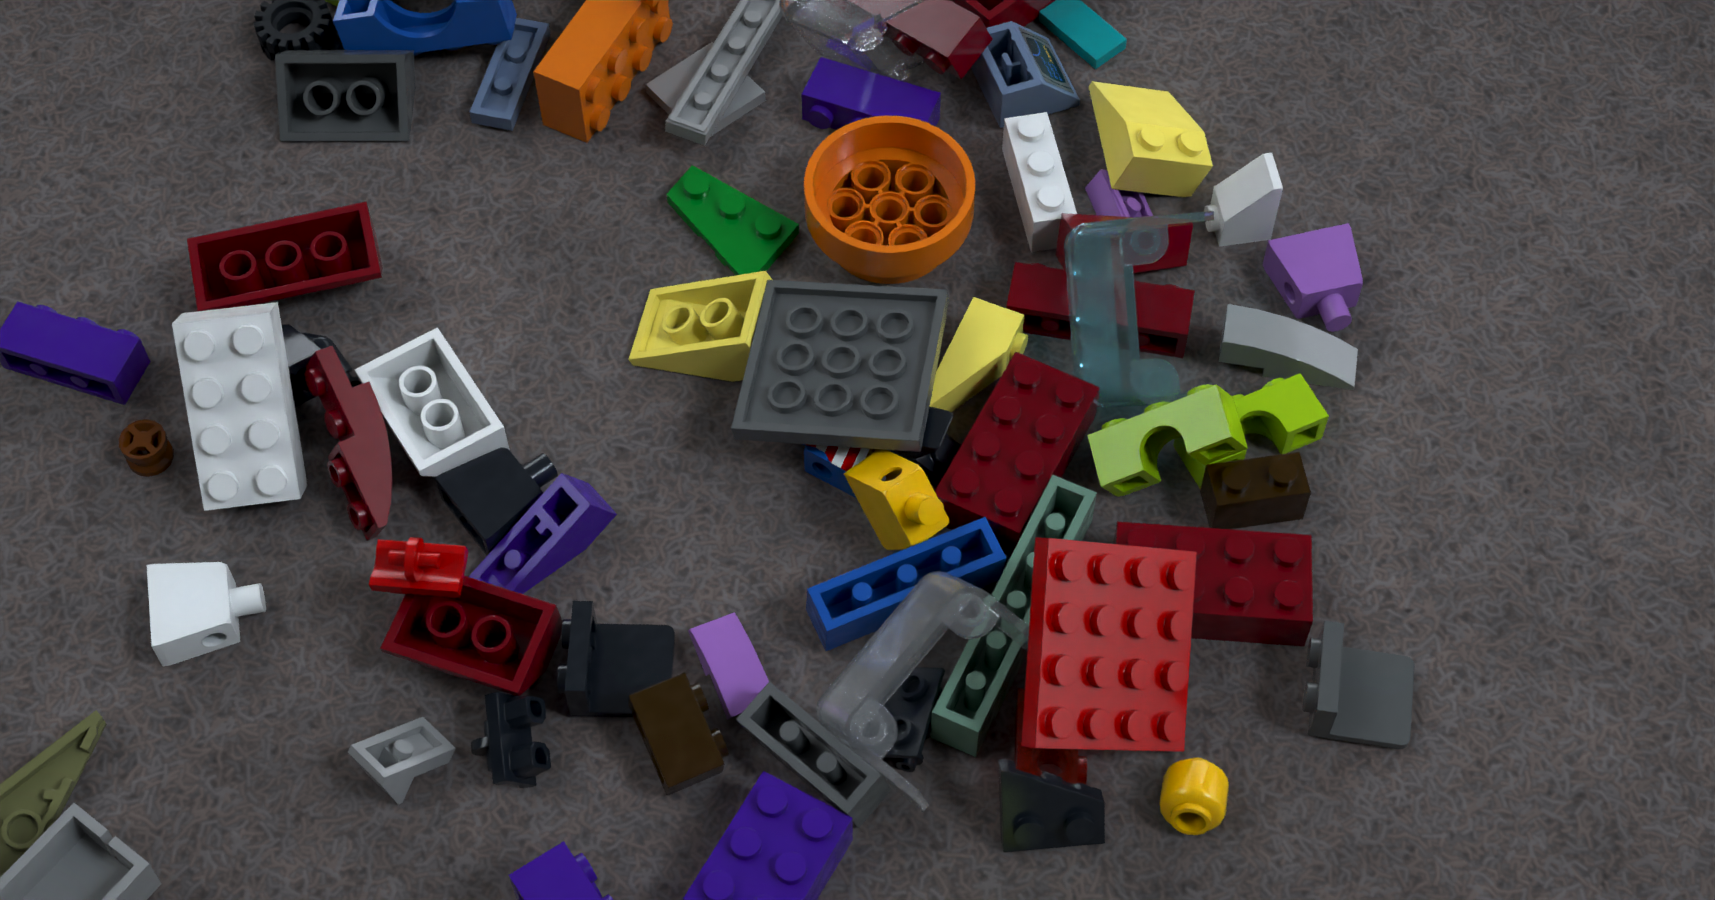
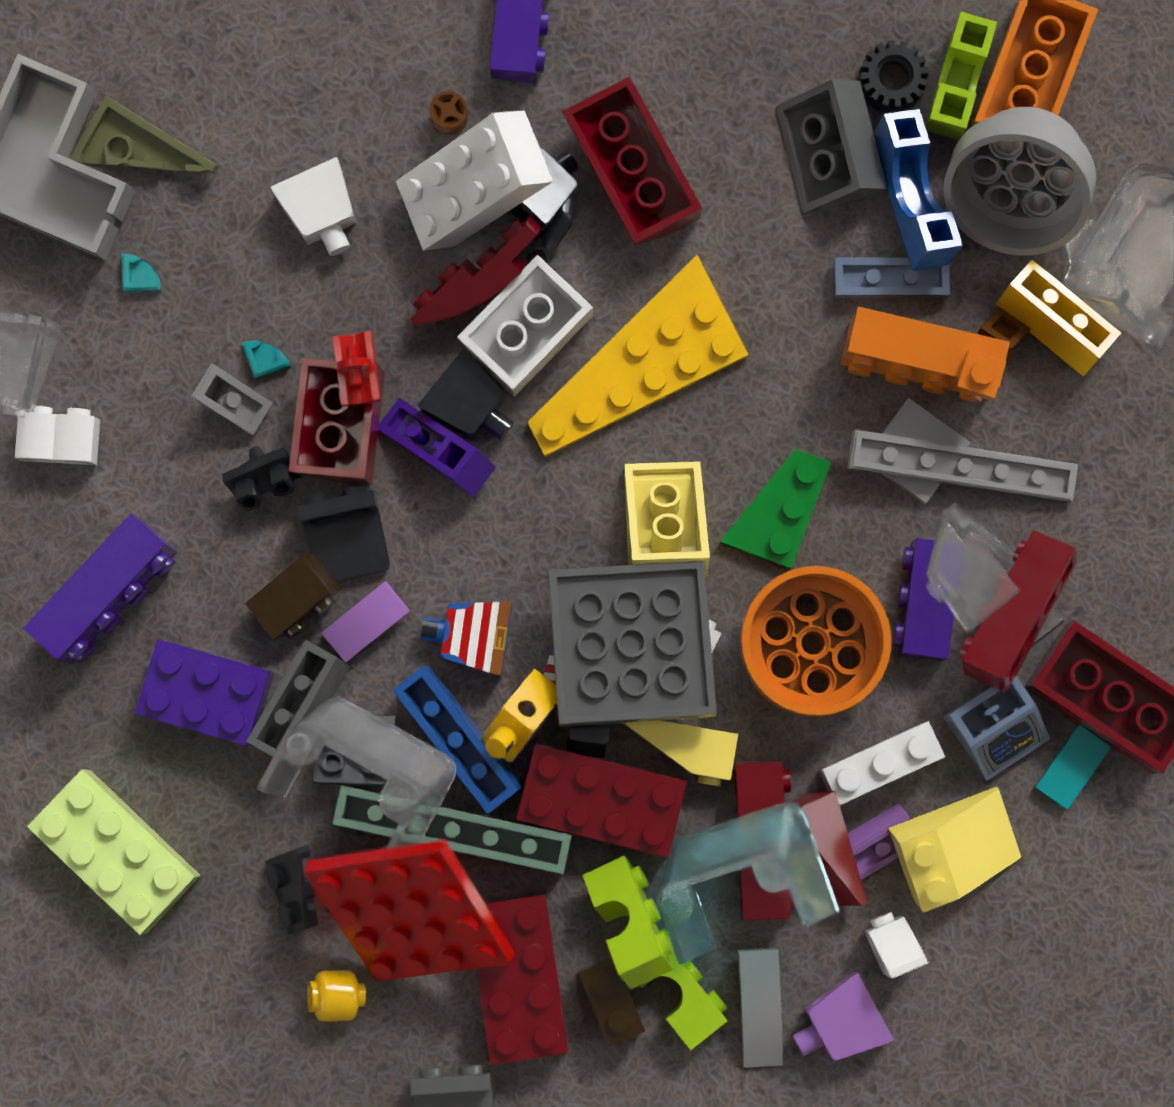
camera: 75 degrees right, 25 degrees up
(199, 846) = (138, 275): none -> teal tile
(362, 718) = (264, 358): none -> teal tile
(515, 308) = (660, 351): none -> yellow wing
(784, 548) = (472, 635): none -> torso

